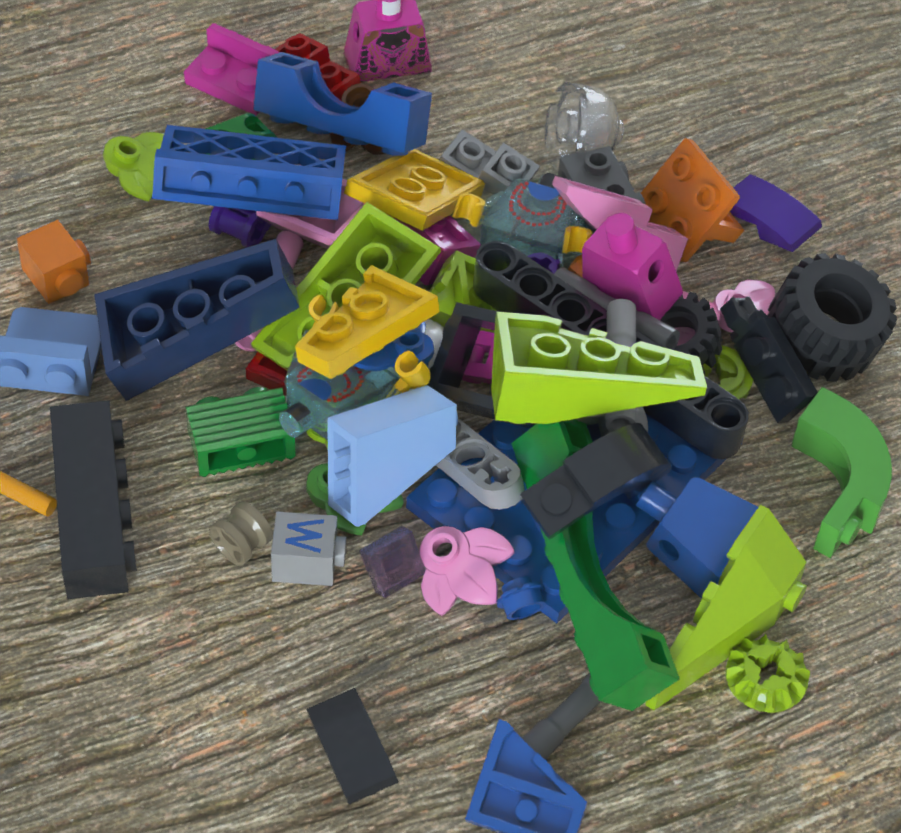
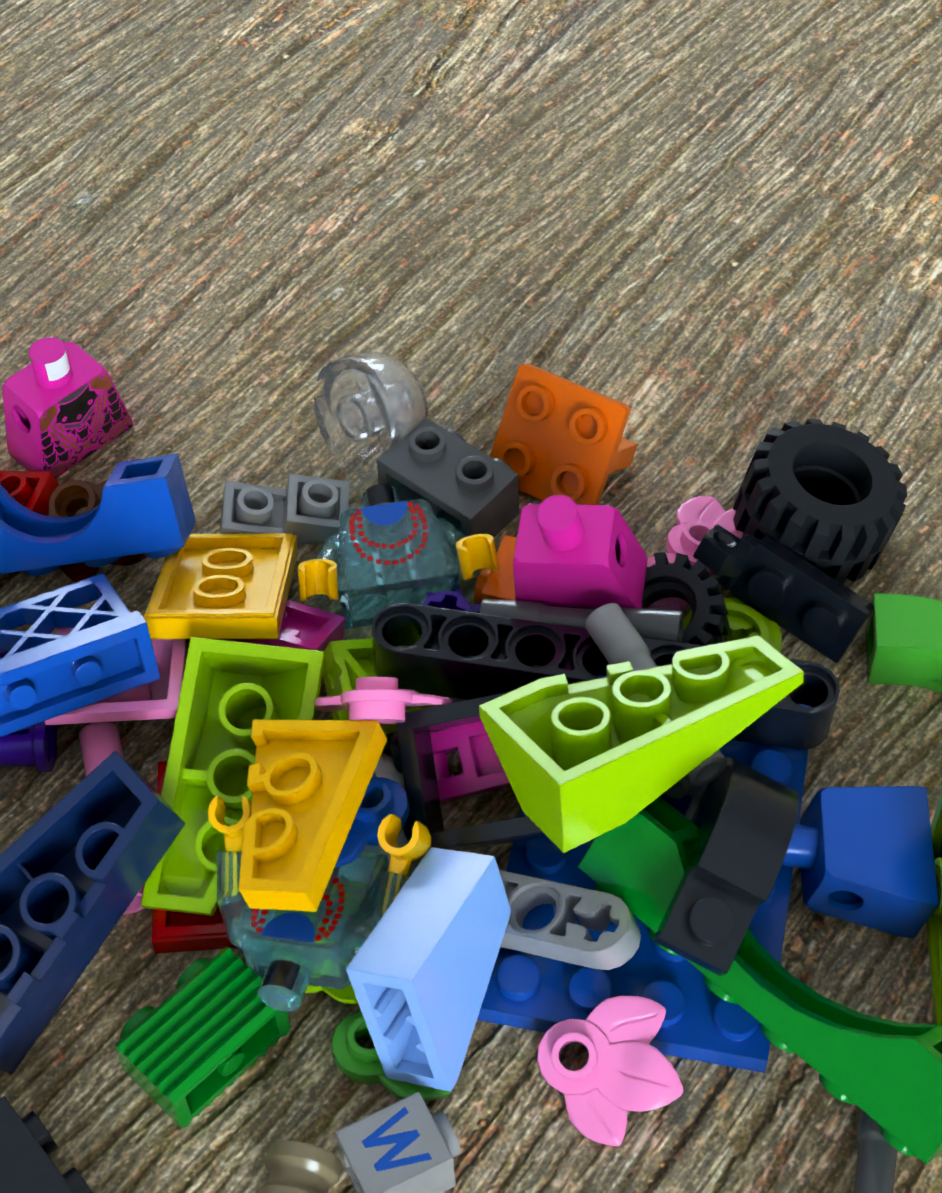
camera: 25 degrees left, 0 degrees up
(393, 561) = (518, 1110): clear purple tile -> none
(449, 288) = (378, 701): none -> bright pink plate
(521, 598) = (710, 1067): blue plate -> none
(597, 205) = (493, 498): bright pink slope -> none
(775, 213) = (665, 407): dark purple slope -> none

